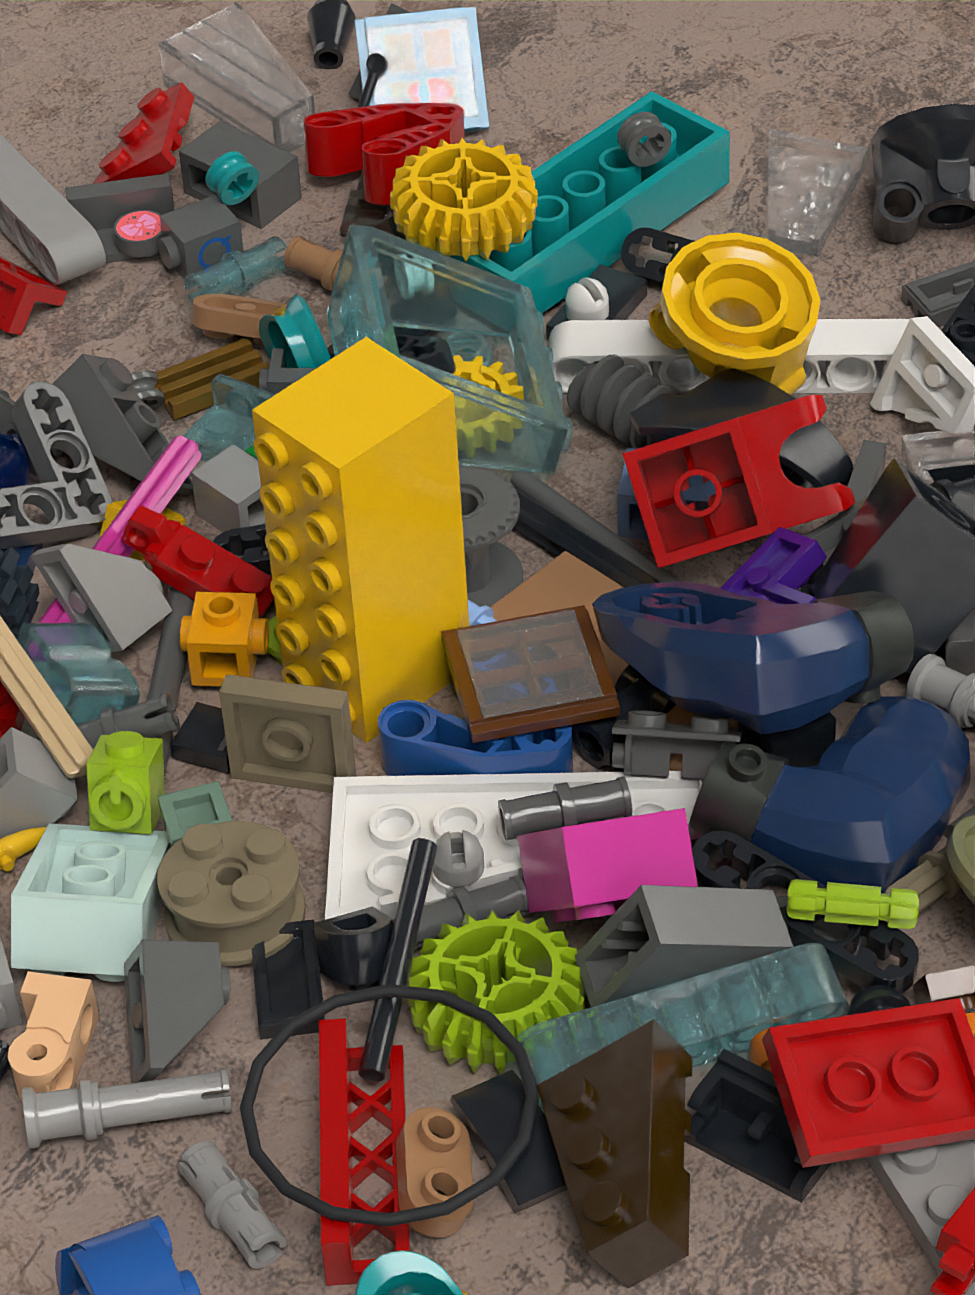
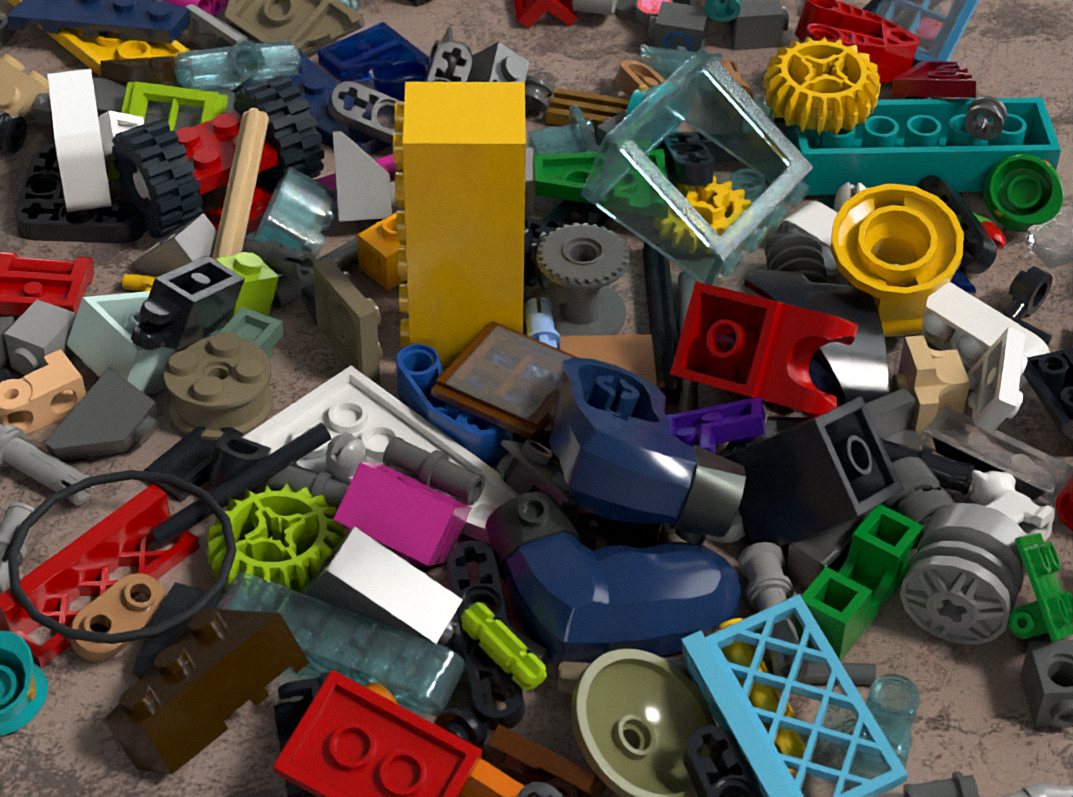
camera: 40 degrees right, 0 degrees up
(136, 823) = (187, 305): none -> black hinge
(534, 132) = (935, 80): none -> dark red wing
(730, 193) = (1023, 191): none -> green piece
(836, 288) = (1028, 293): none -> black plate
(867, 413) = (932, 379): none -> tan brick

